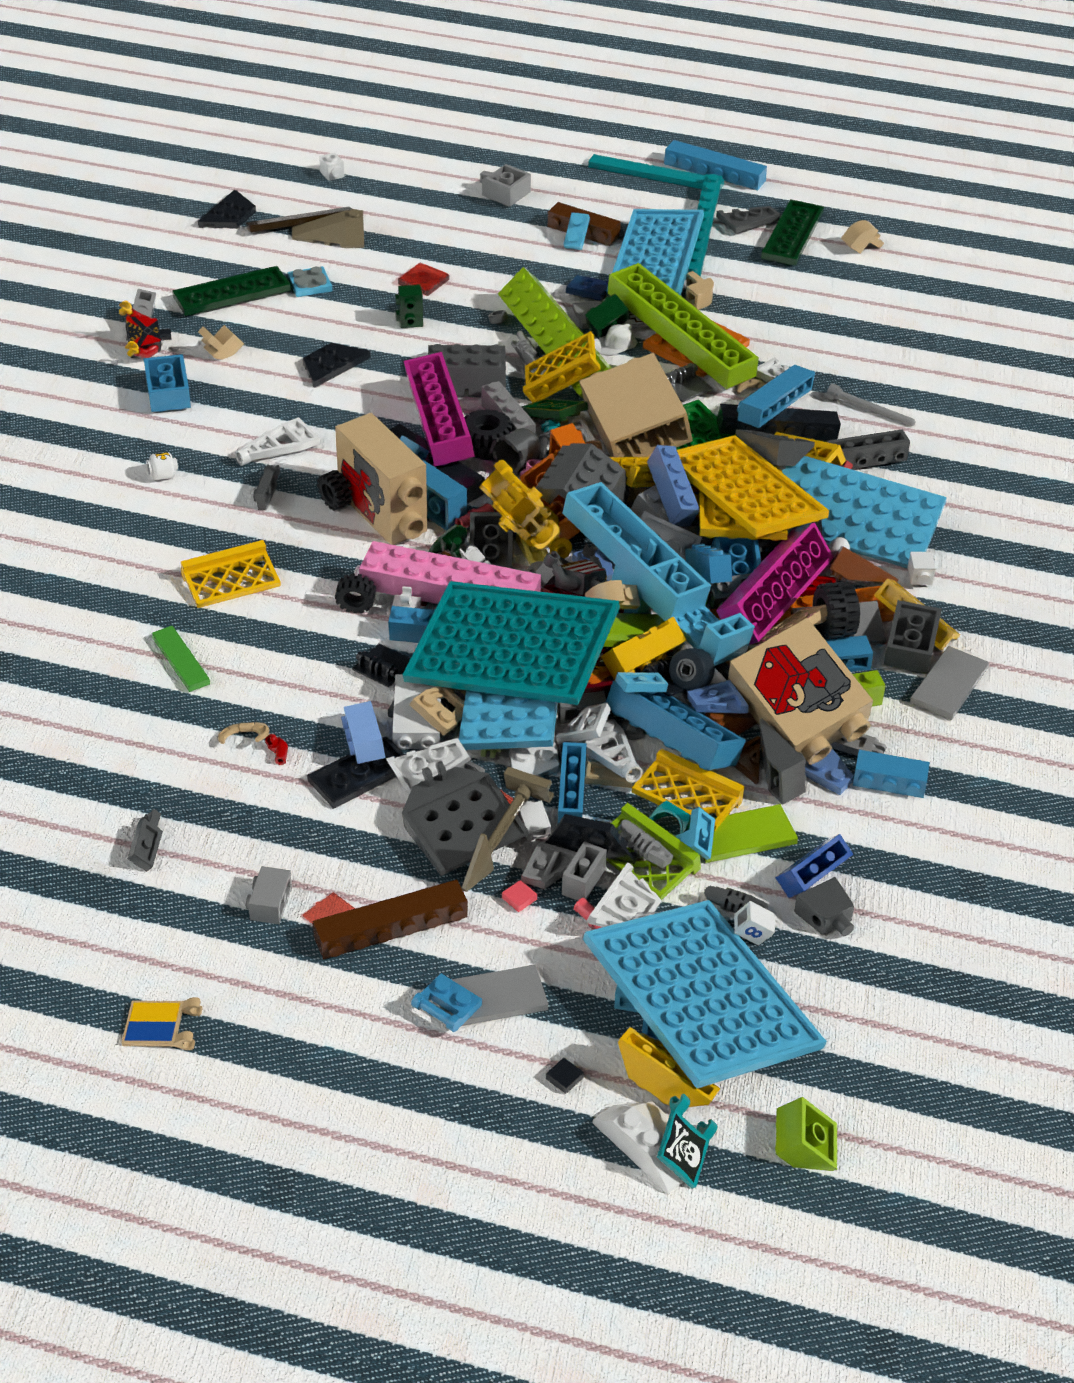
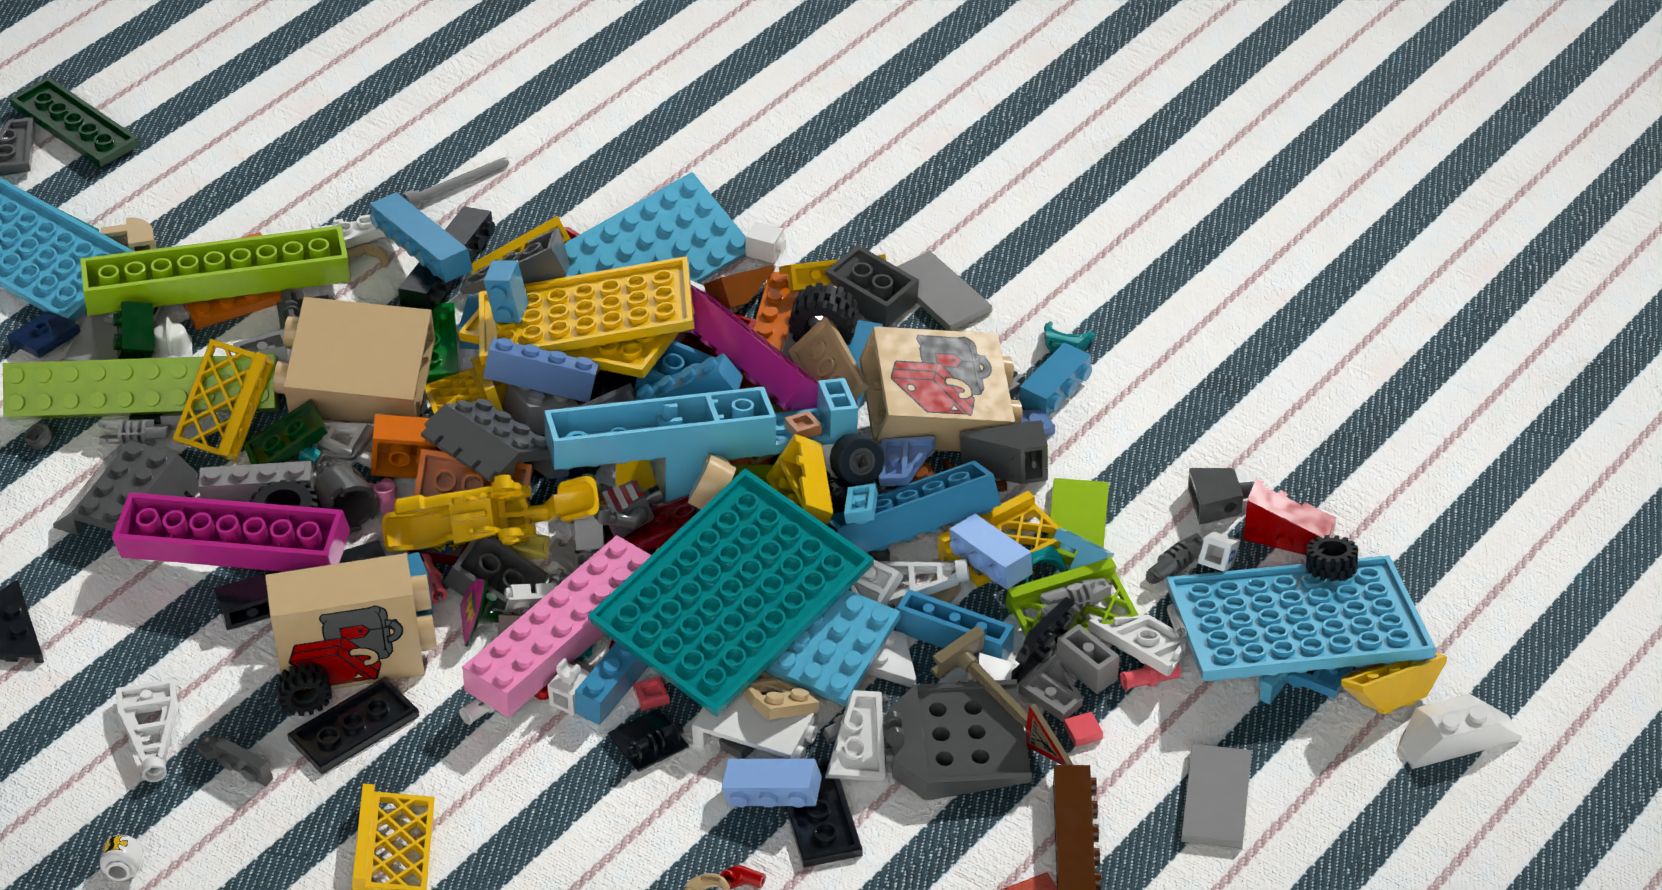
camera: 65 degrees left, 0 degrees up
(327, 527) = (353, 725): none -> black tile
(353, 602) = (519, 723): black tyre -> none
(450, 997) = (1217, 822): dark azure plate -> none
(564, 1075) = (1348, 768): black tile -> none
(655, 778) = (991, 551): none -> light blue brick
(684, 1145) = (1466, 685): flag -> none
(694, 623) = (803, 424): none -> nougat plate
(721, 435) = (506, 291): none -> dark azure brick
(788, 985) = (1332, 558): none -> black tyre
(806, 1136) = (1498, 613): lime slope -> none
(814, 866) = (1162, 480): blue brick -> none
(814, 958) = (1283, 522): none -> red wedge
(860, 235) = (140, 67): tan brick -> none
(875, 448) = (547, 197): dark grey brick -> none
(943, 773) = (1055, 339): none -> teal helmet

